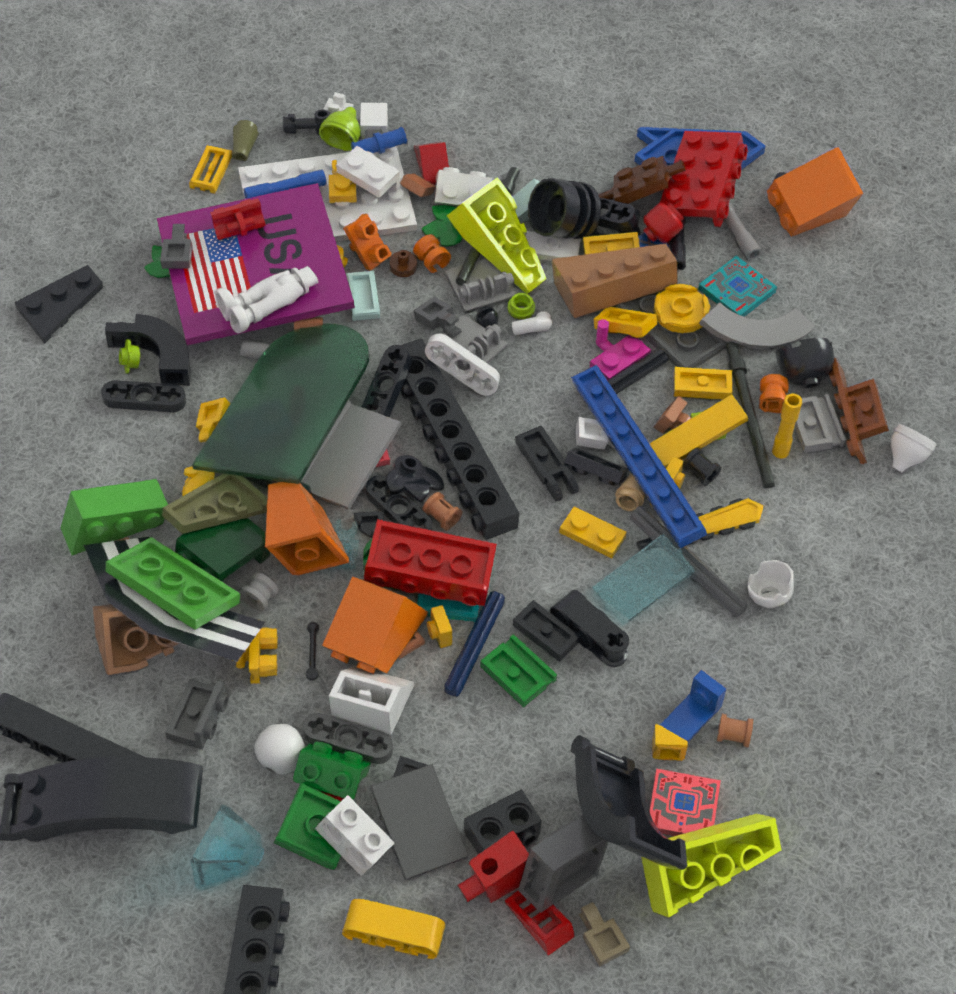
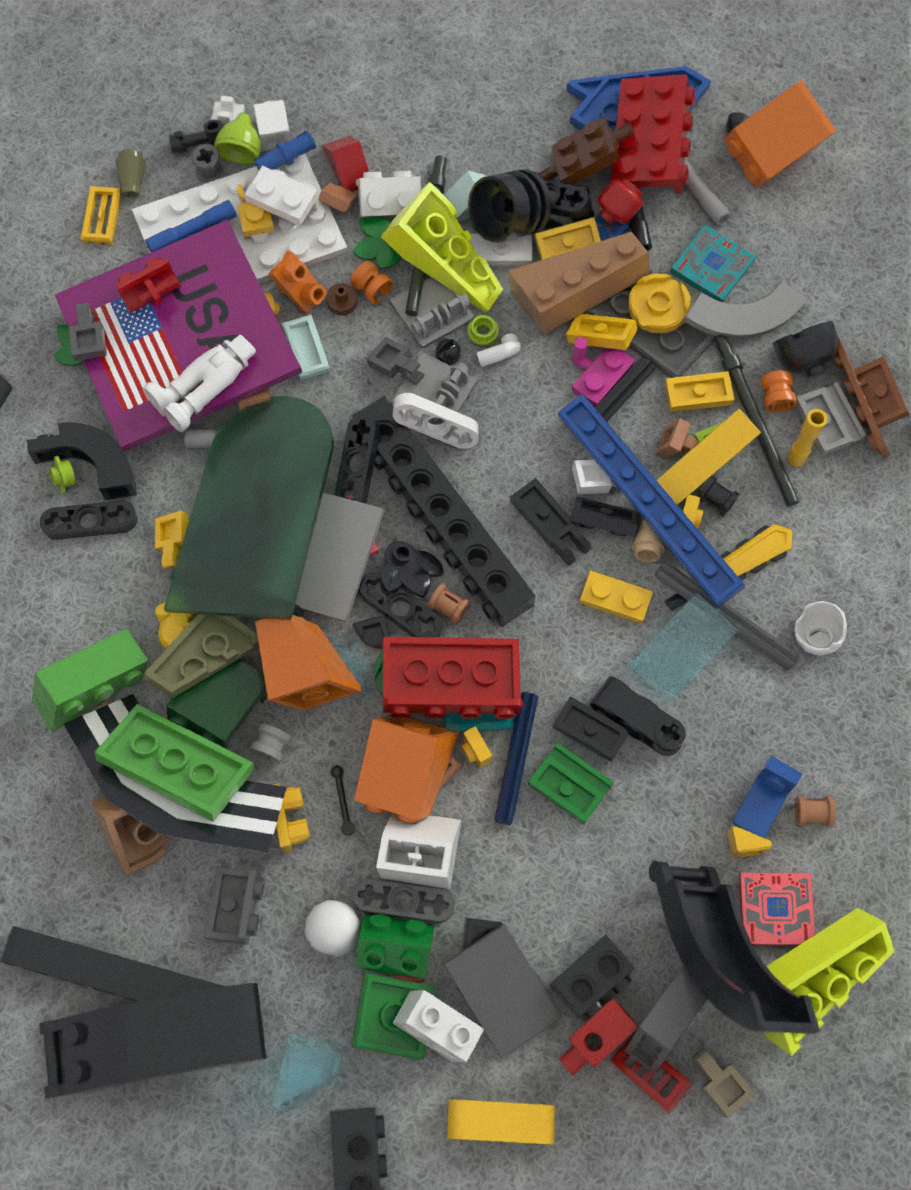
camera: 10 degrees left, 15 degrees up
(310, 138) = (206, 160): none -> dark grey bush

